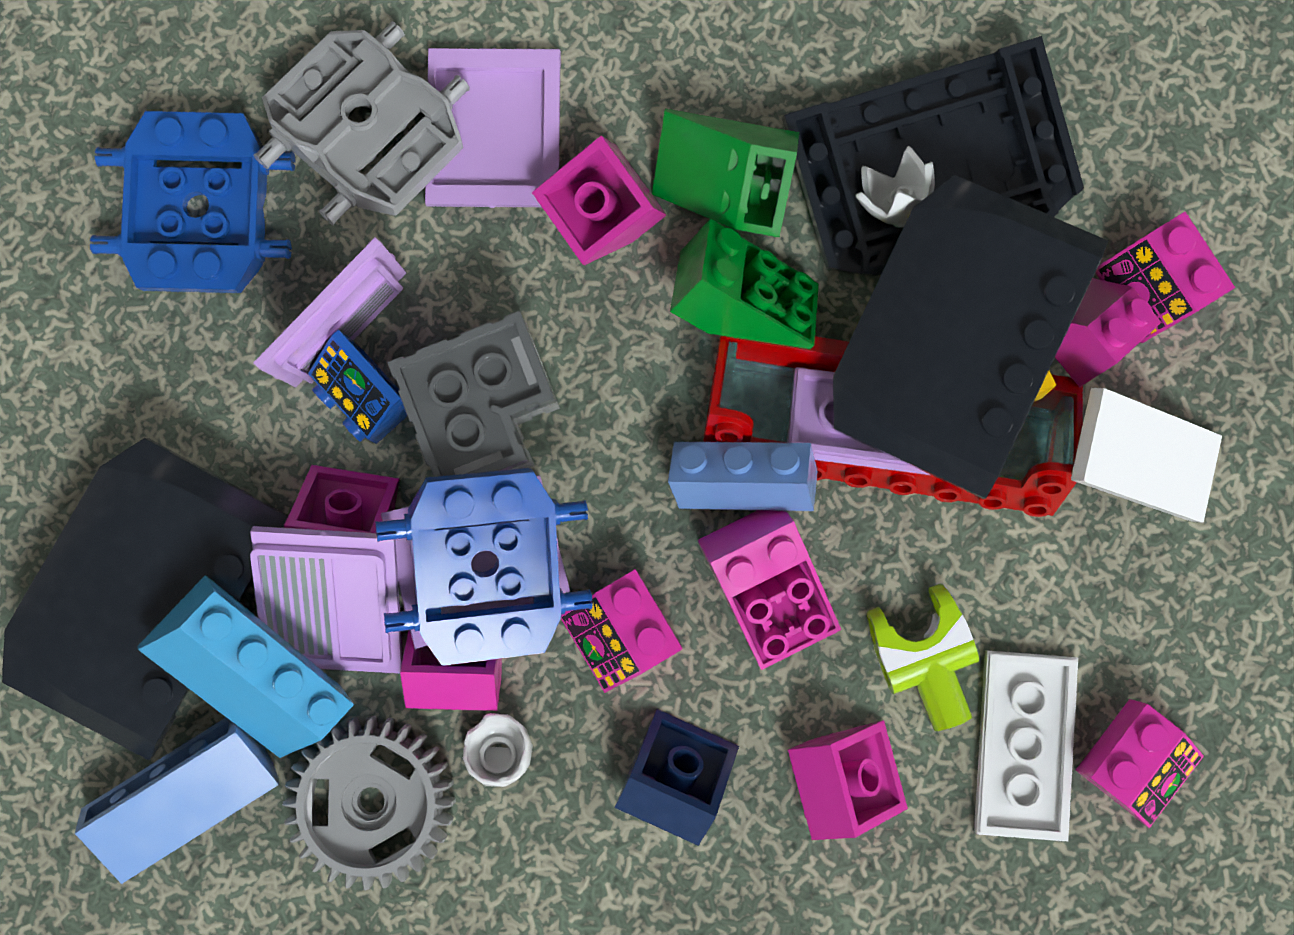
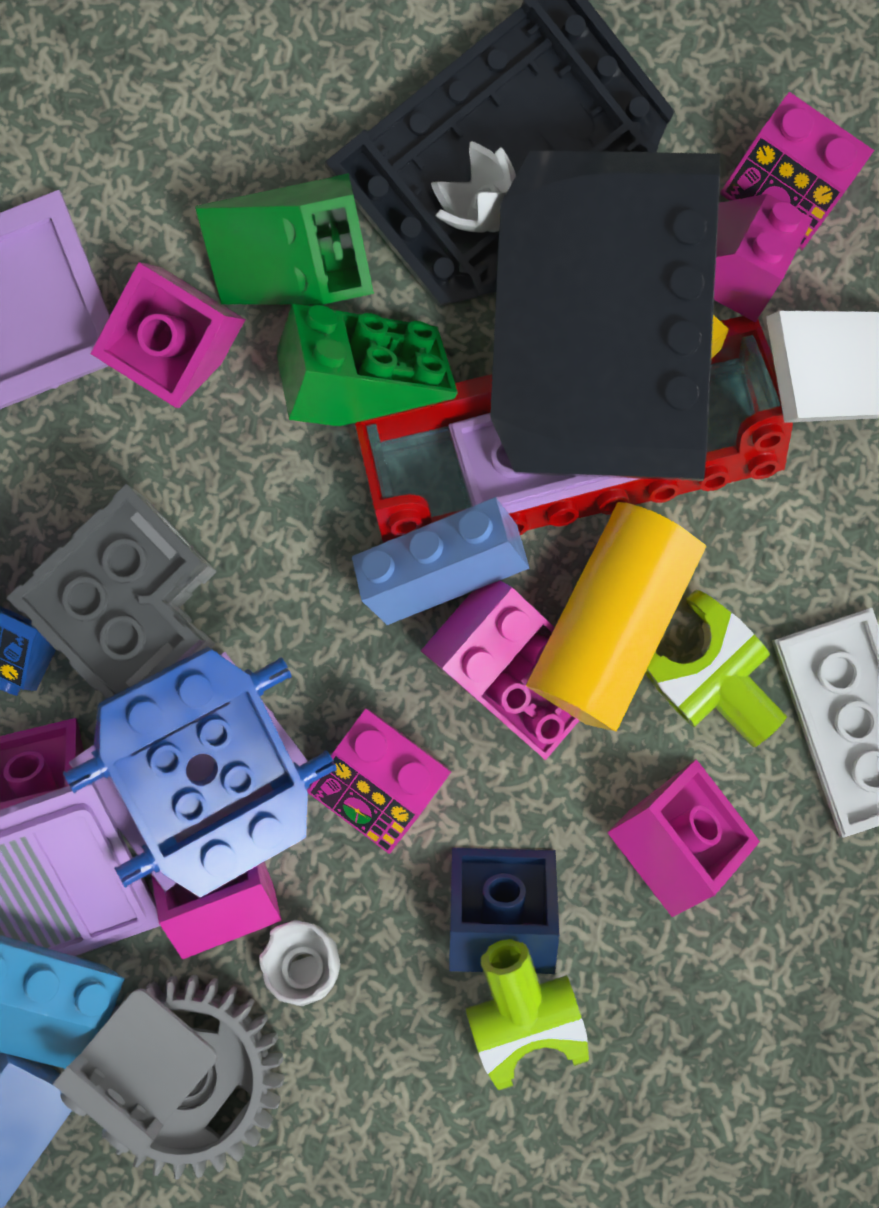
camera: 25 degrees left, 0 degrees up
(334, 783) = (136, 1072): none -> light grey bracket
(660, 867) = (523, 1014): none -> lime connector
(868, 578) = (616, 616): none -> yellow brick

